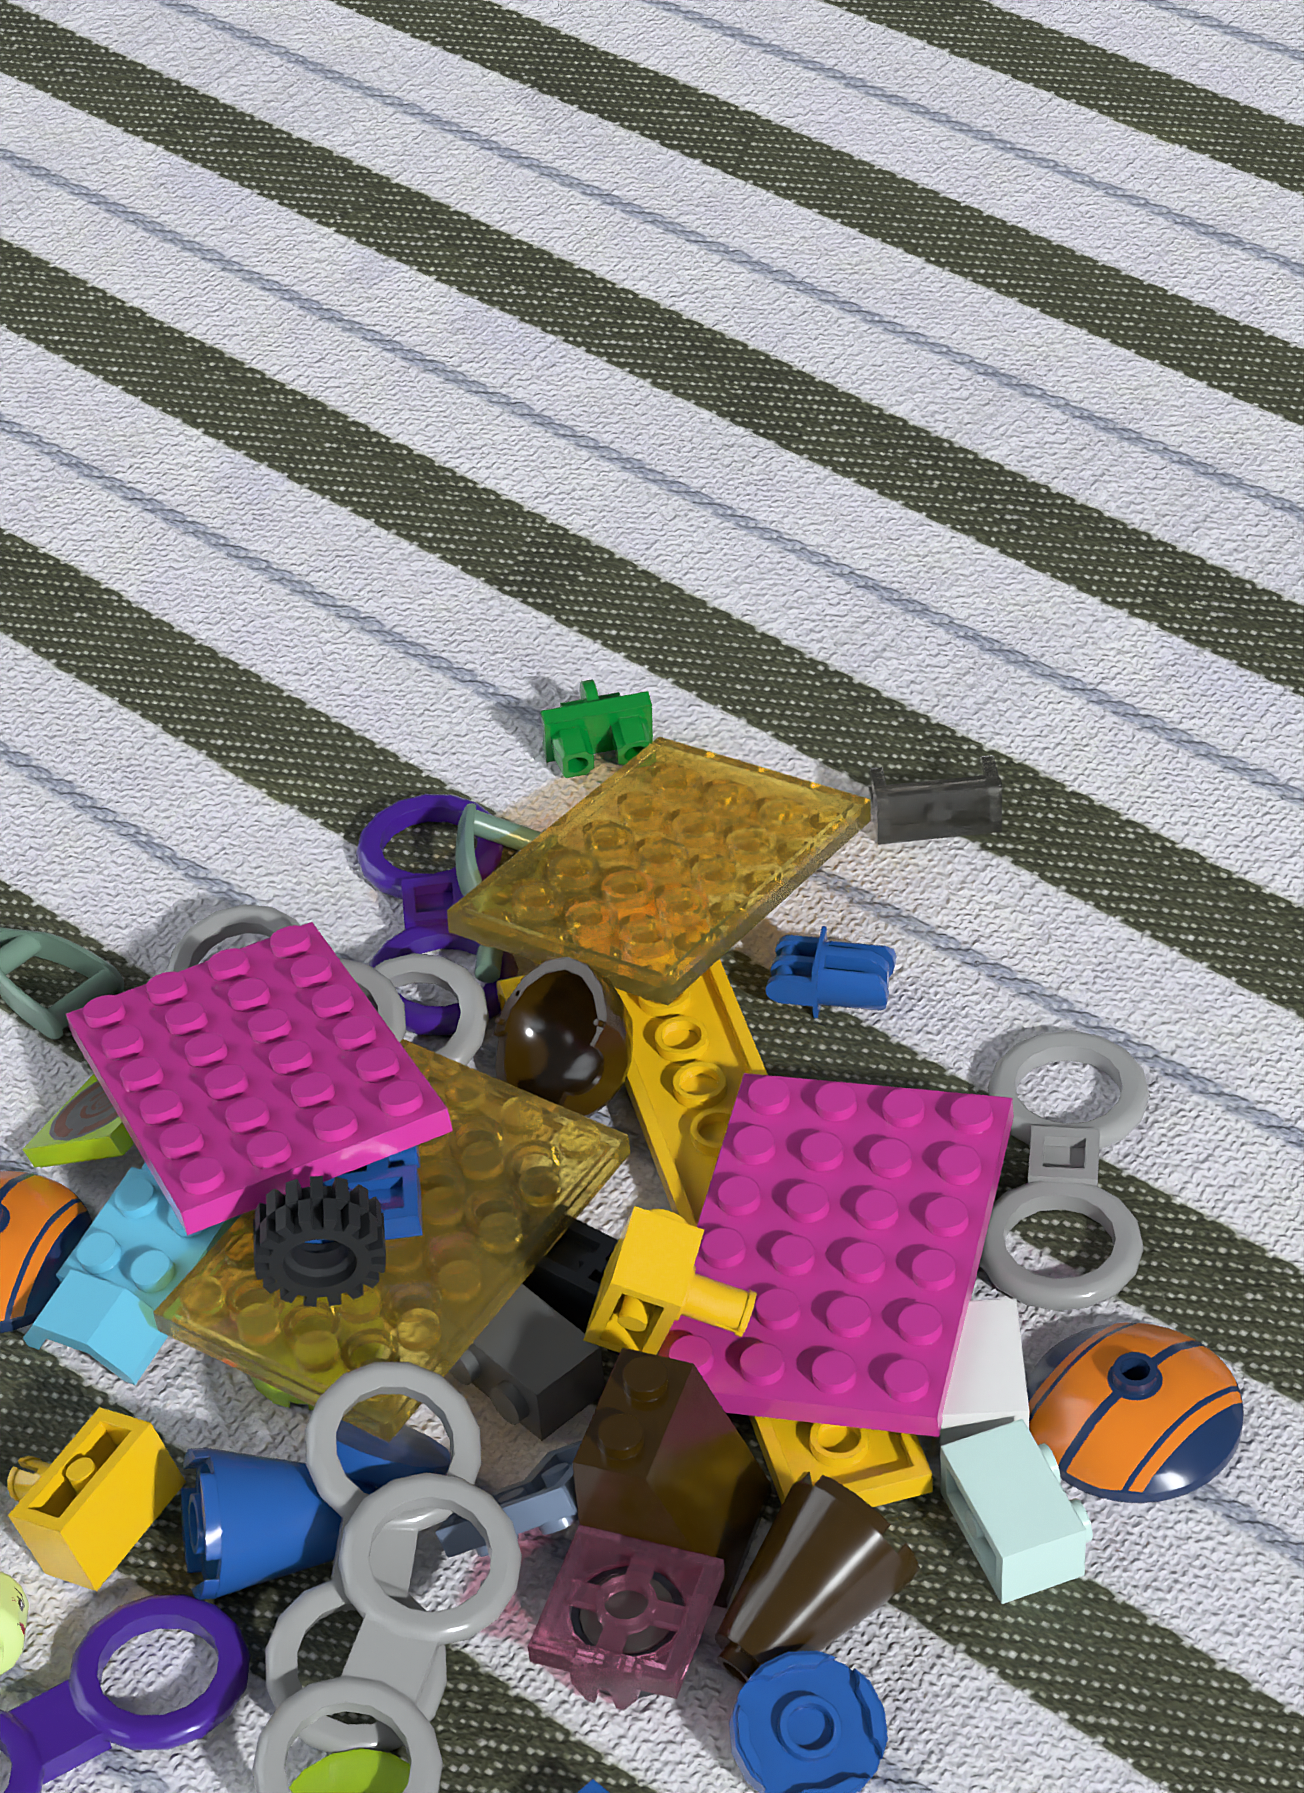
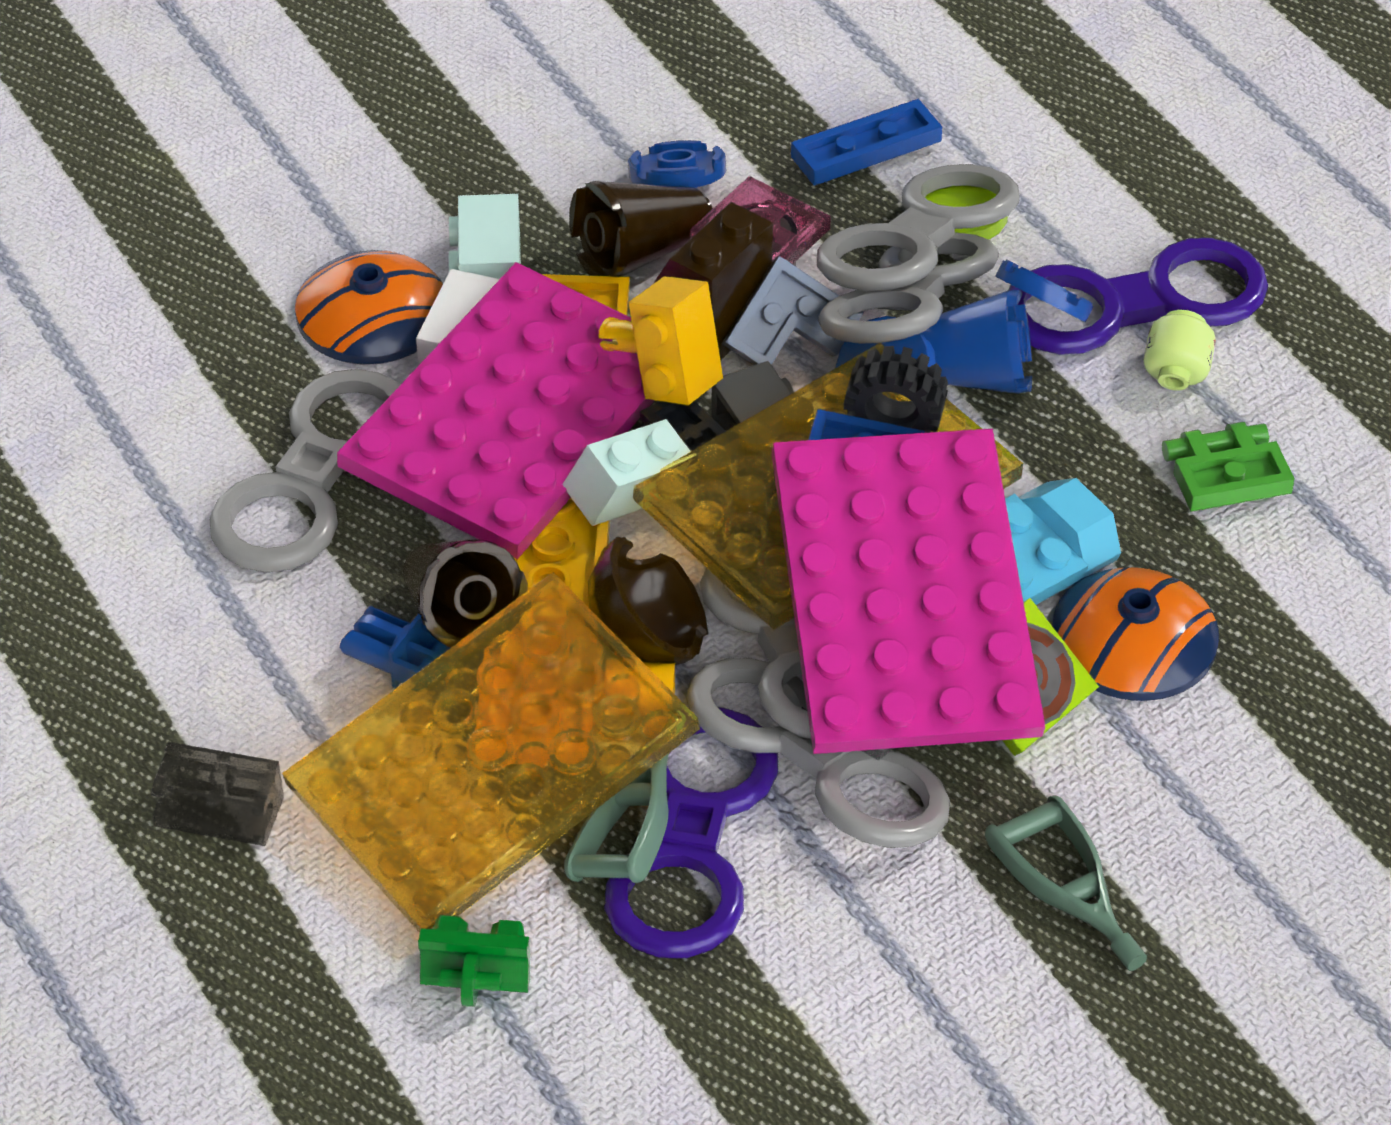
camera: 165 degrees left, 5 degrees up
(93, 1497) = (1089, 391): yellow brick -> none
(180, 1599) = (1044, 290): none -> blue tile
(654, 1163) = (610, 468): none -> light aqua brick
(791, 1001) = (461, 585): none -> dark brown cone

